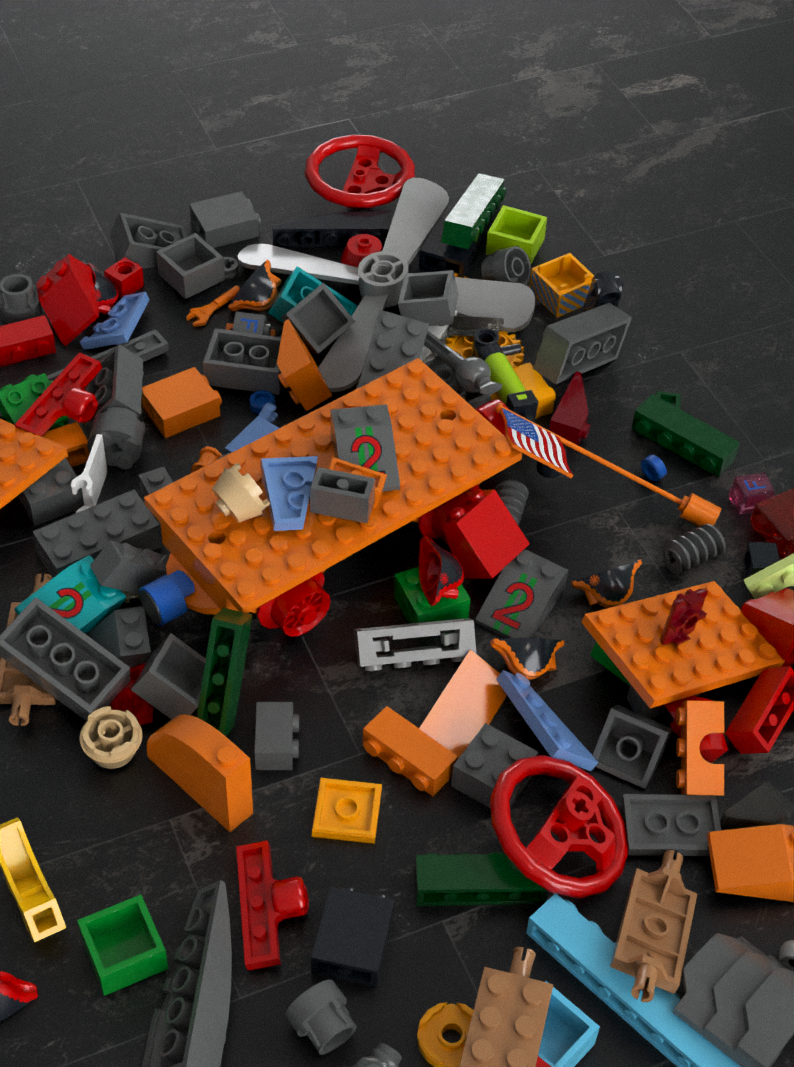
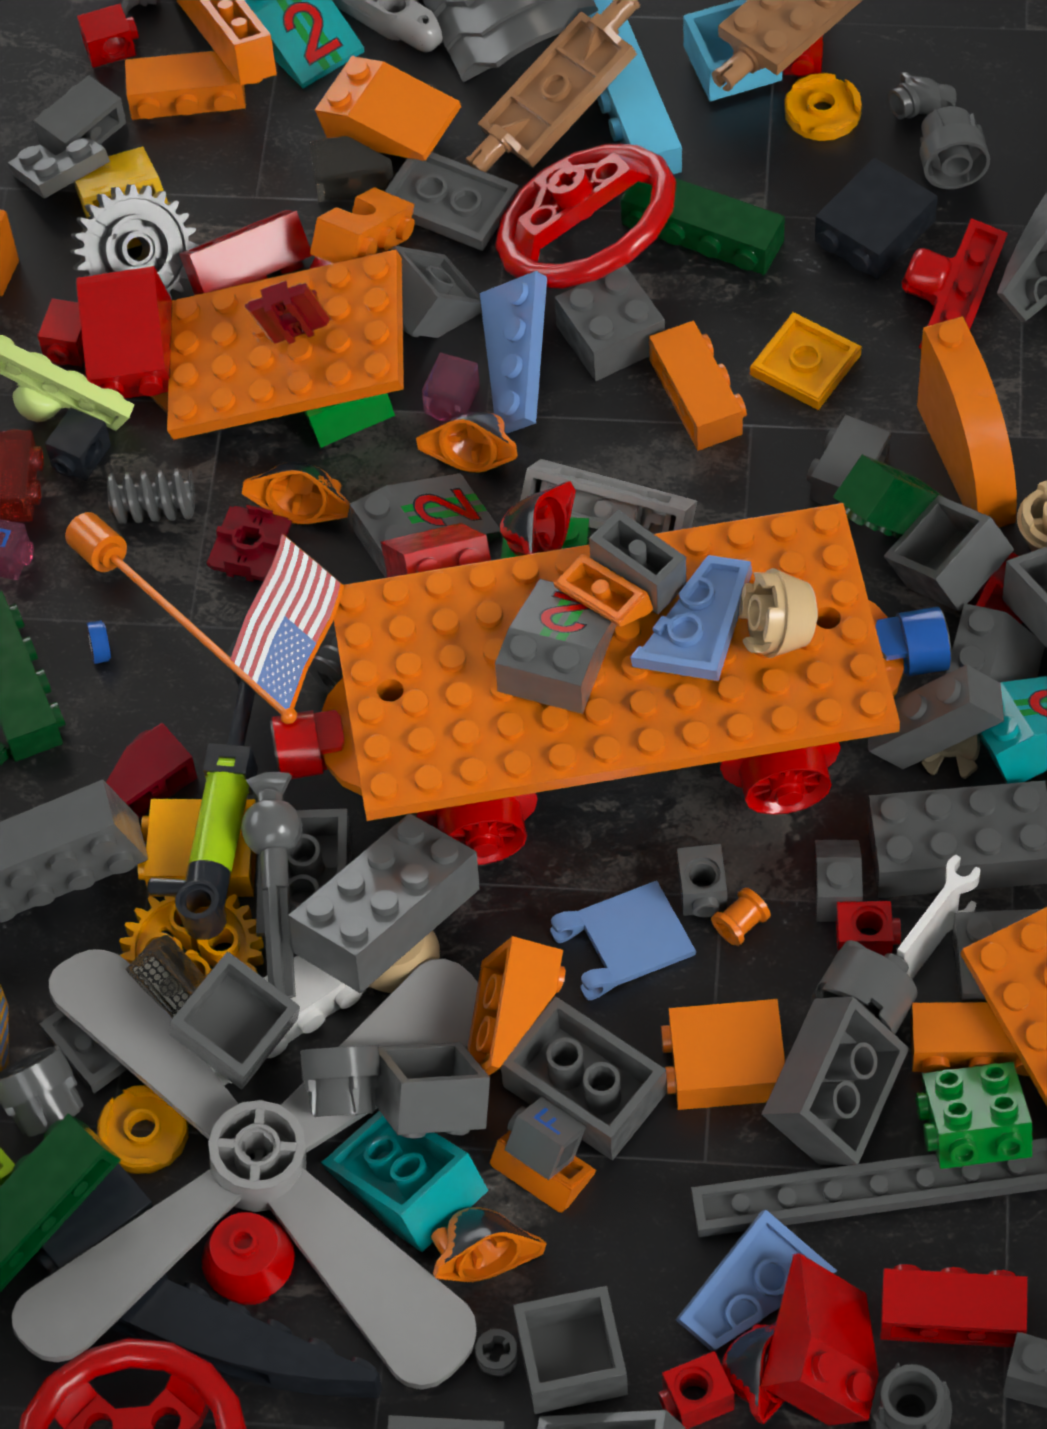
camera: 145 degrees left, 10 degrees up
(64, 397) = (927, 1059): red plate -> none
(127, 475) = (868, 914): none -> red brick
(203, 313) = (588, 1264): orange piece -> none
(259, 399) = (597, 1009): blue tile -> none
(363, 300) = (341, 1079): none -> dark grey piece
(465, 704) = (592, 412): sticker -> none
(567, 685) = (450, 387): none -> clear pink brick
(613, 540) = (237, 558): none -> dark red piece

